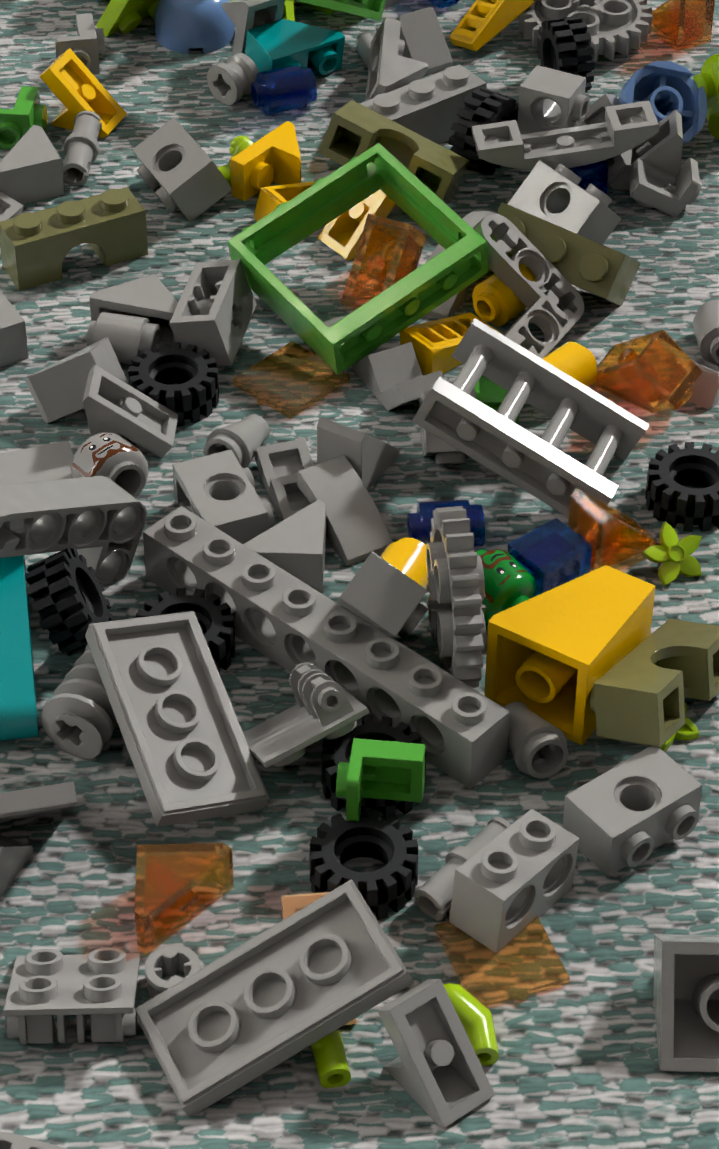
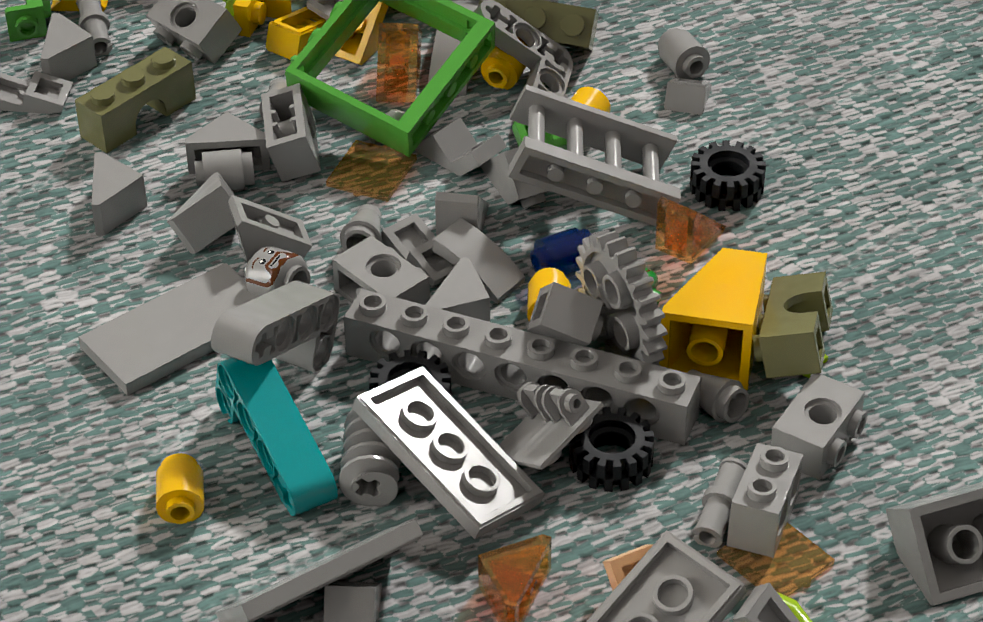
camera: 20 degrees left, 0 degrees up
(67, 598) = (314, 386): black tyre -> none
(192, 372) = (288, 181): black tyre -> none
(366, 839) = (638, 502): black tyre -> none
(381, 772) = (636, 447): bright green bracket -> none
(437, 340) = (481, 109): yellow slope -> none
(552, 555) = (663, 253): clear blue brick -> none
(648, 373) = (651, 96): clear orange slope -> none
(674, 555) = (741, 230): lime plant -> none

